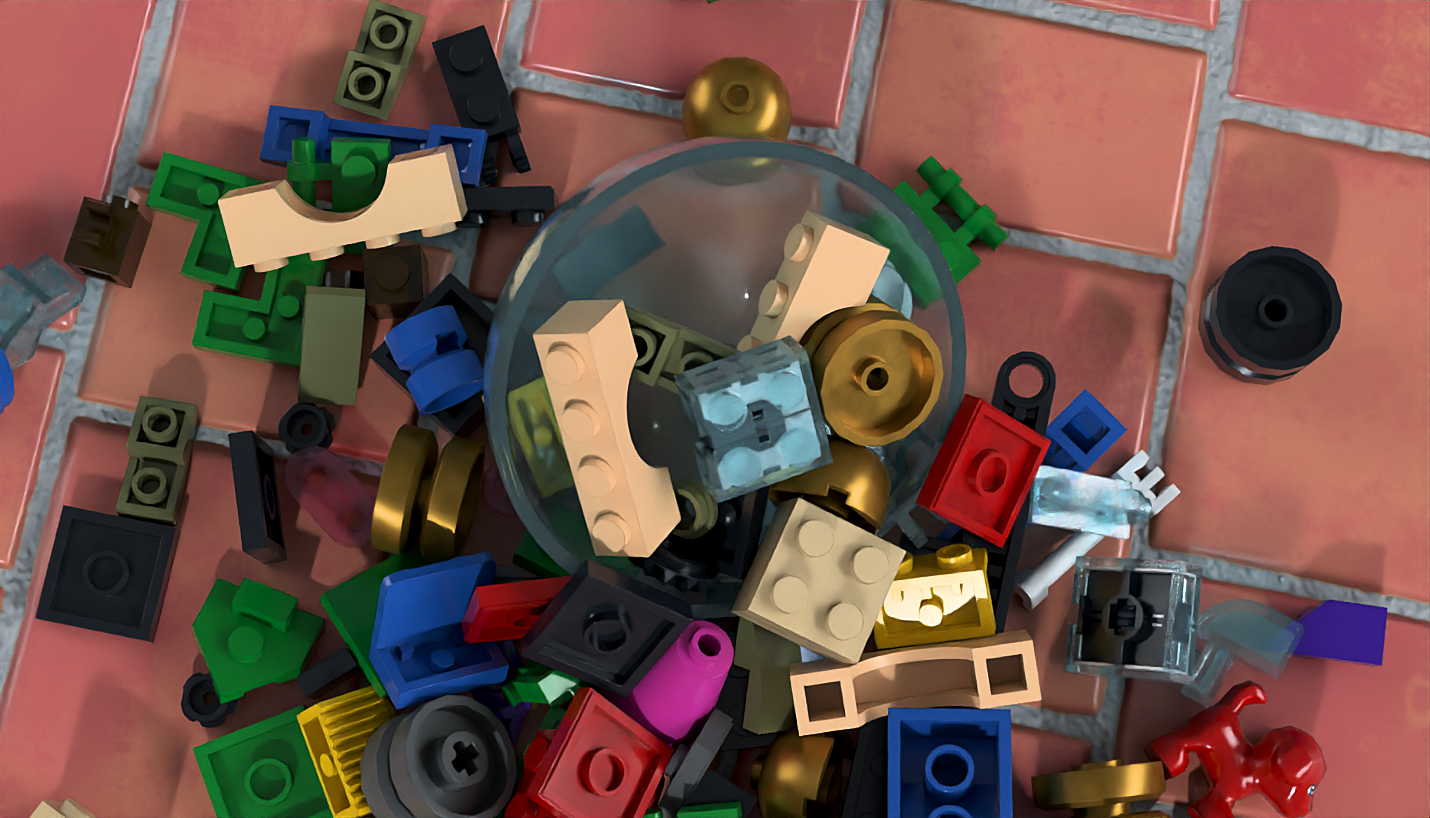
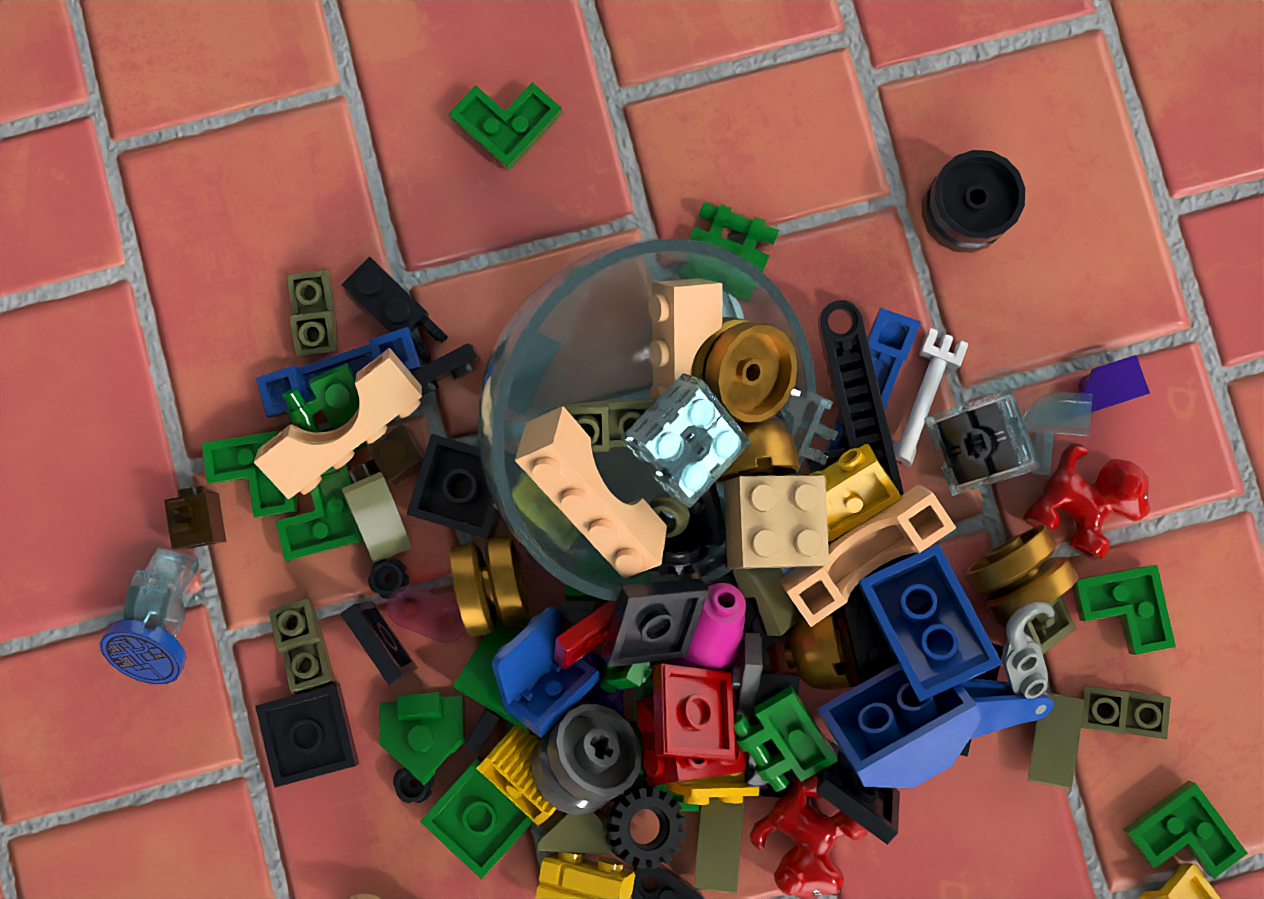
camera: 20 degrees left, 5 degrees up
(435, 356) = (452, 497): blue wheel -> none
(737, 99) = (562, 231): pearl gold cylinder -> none
(983, 471) = (845, 395): red tile -> none
(1086, 503) = (915, 381): clear light blue hinge -> none

